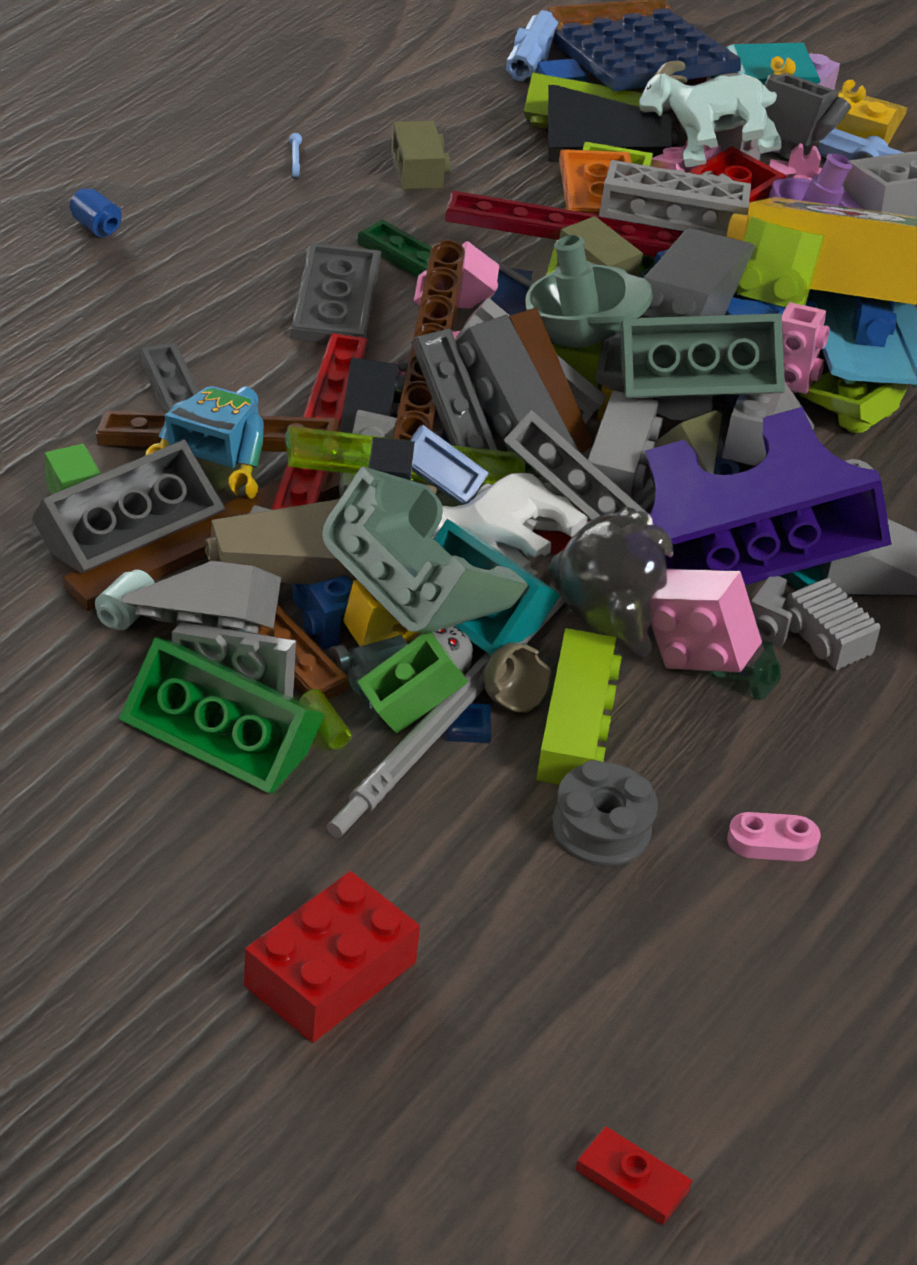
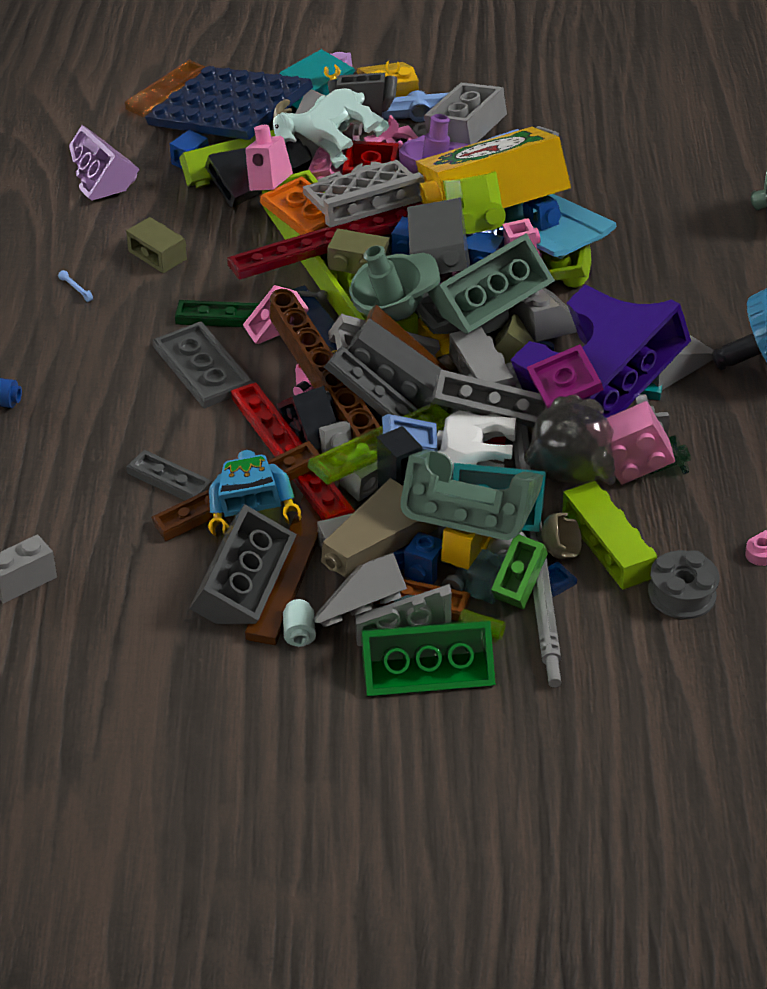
camera: 30 degrees left, 0 degrees up
(68, 467) = (183, 569): bright green brick -> none
(331, 956) = (633, 750): red brick -> none
(451, 58) = (100, 166): none -> lavender wedge
(531, 45) = (145, 134): light blue piece -> none
(599, 115) = (267, 160): none -> bright pink torso
(674, 493) = (565, 375): none -> magenta plate
(832, 623) = (687, 405): light grey brick -> none

